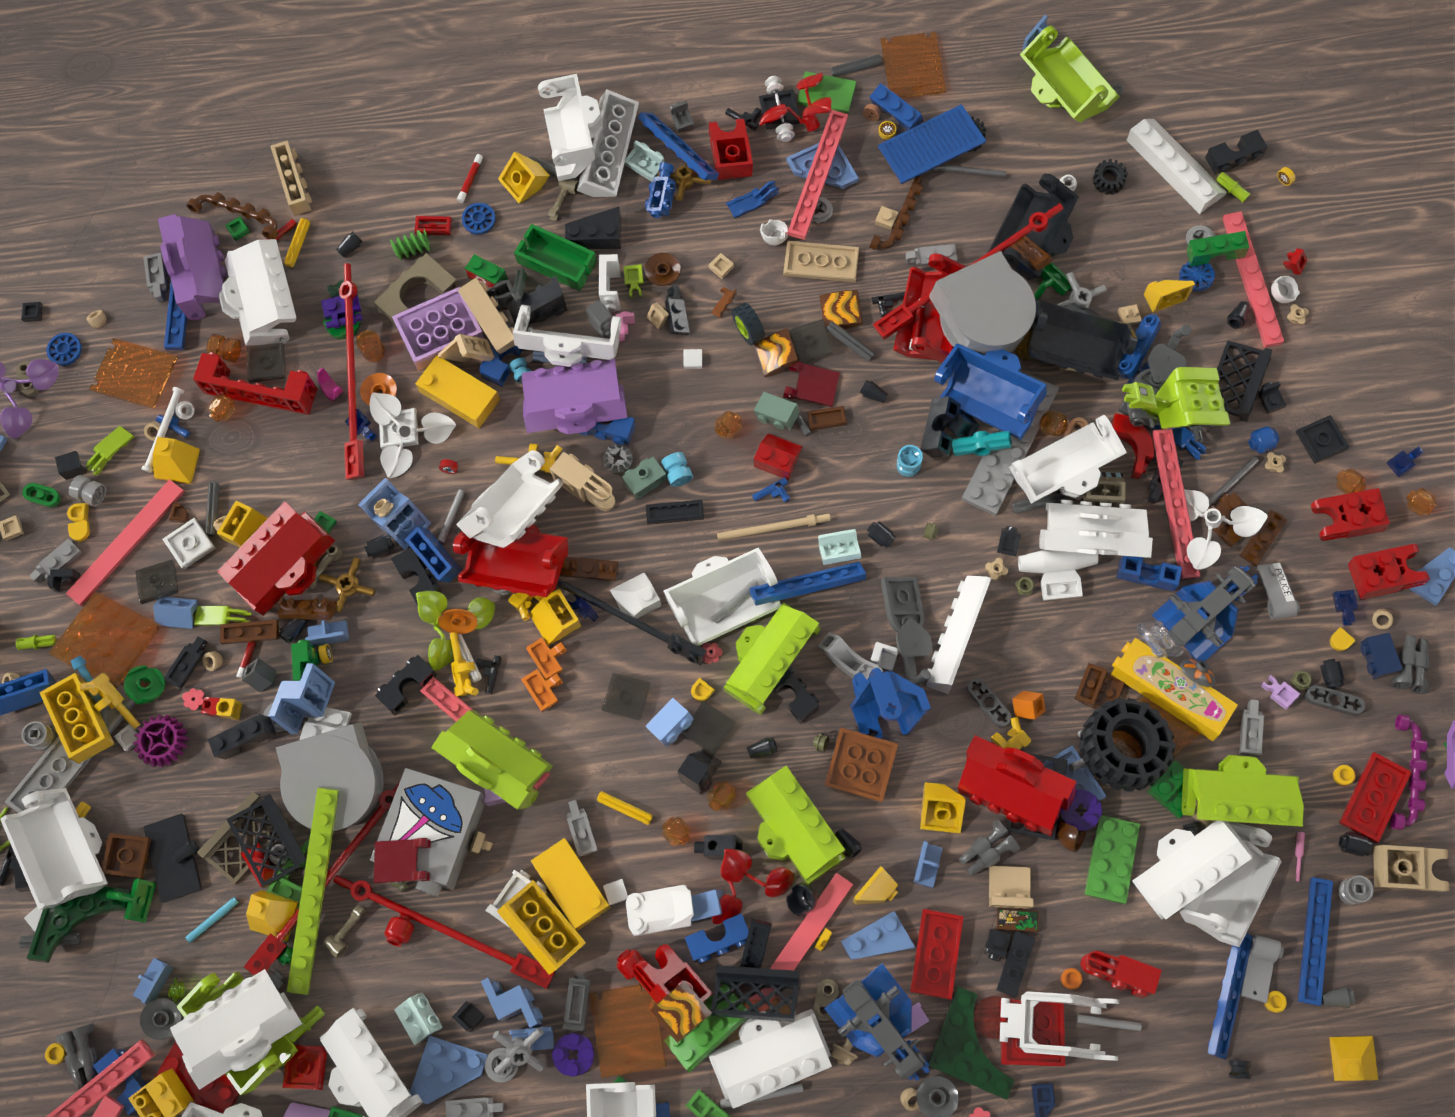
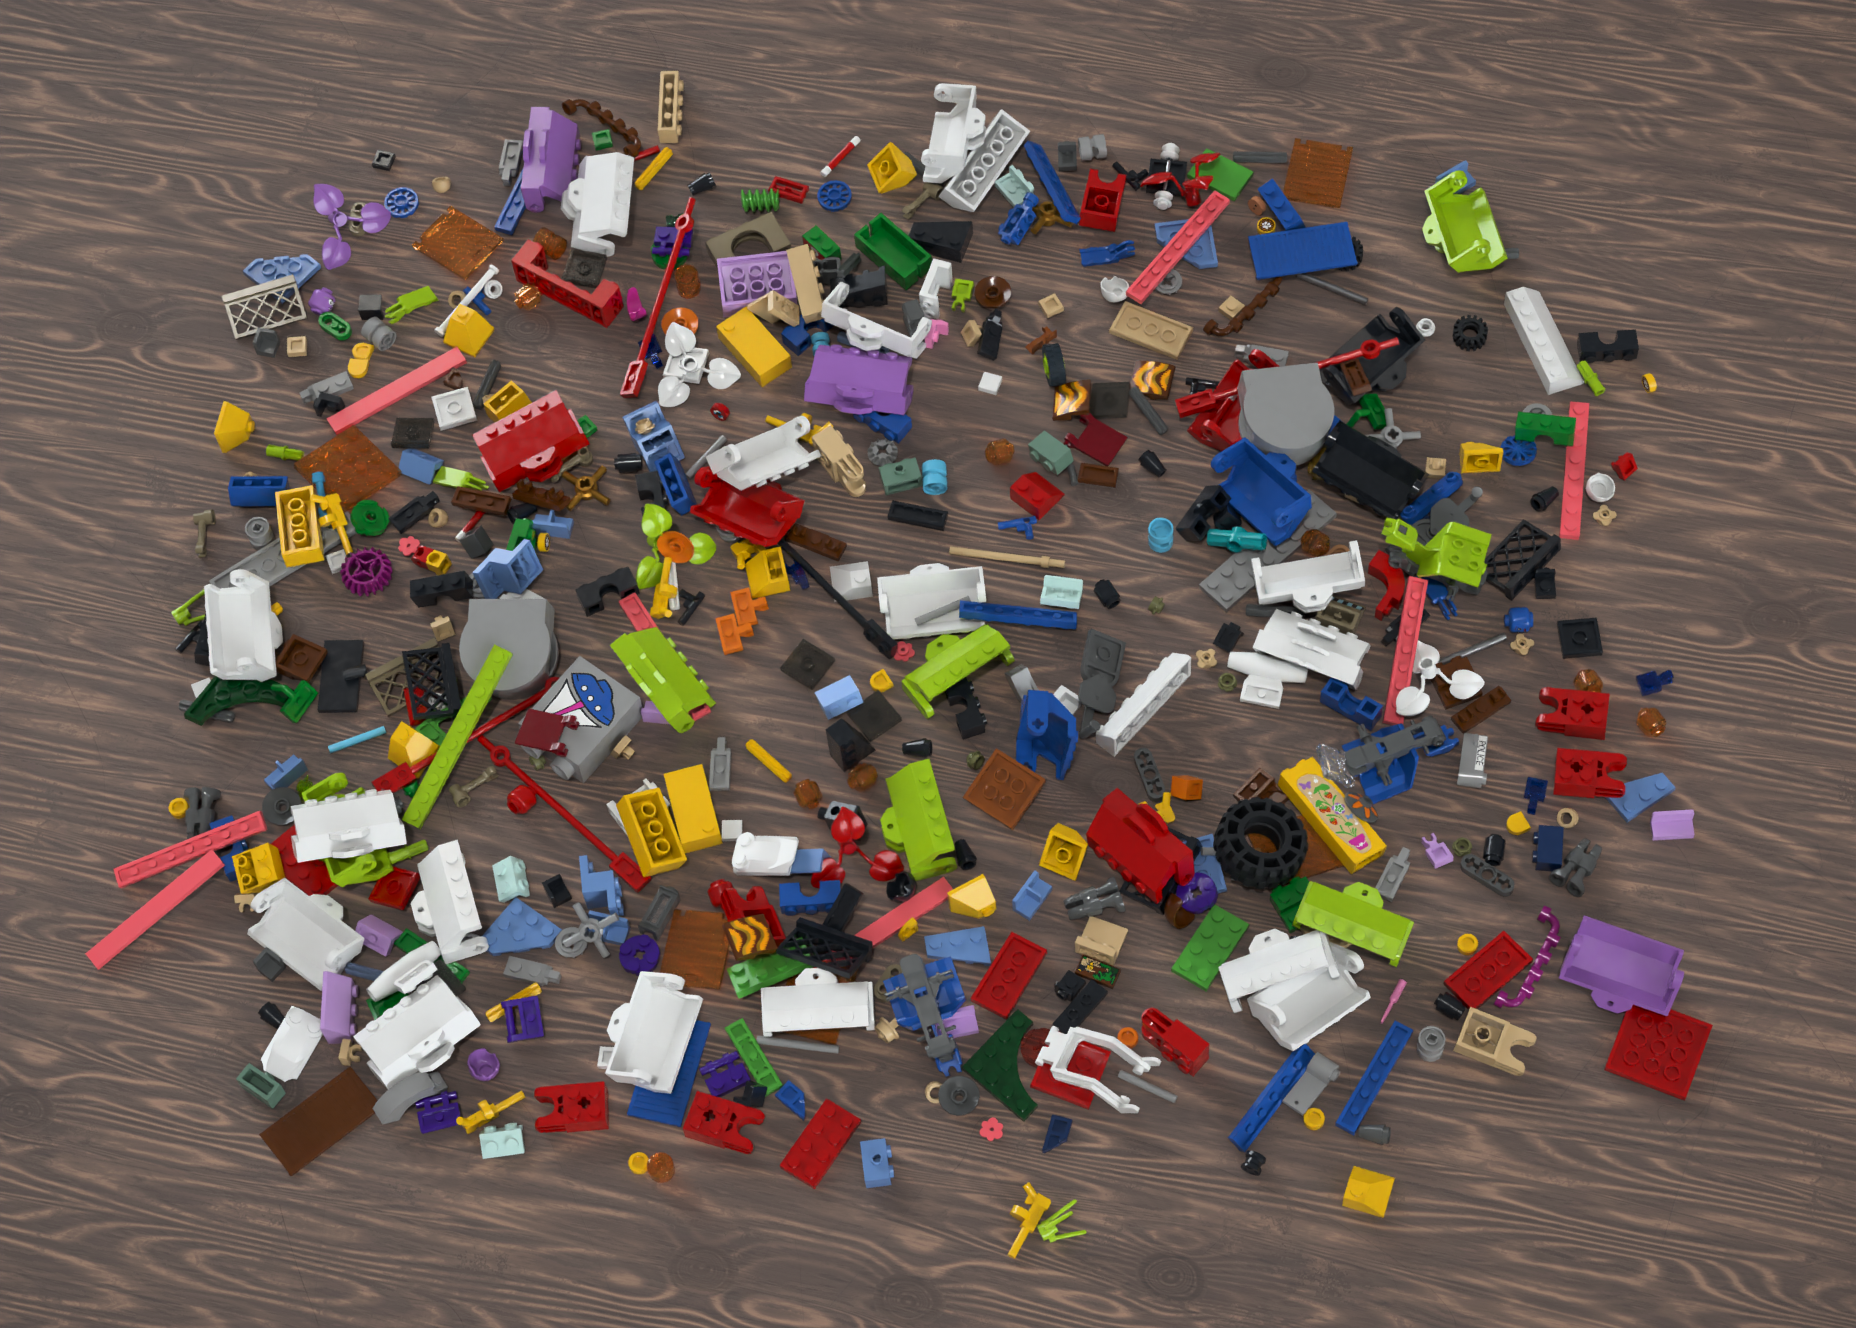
camera: 20 degrees right, 10 degrees down
(19, 474) = (321, 301): none -> medium lavender head
(256, 775) = (442, 628): none -> tan tile
(701, 101) = (1087, 152): none -> light grey wheel

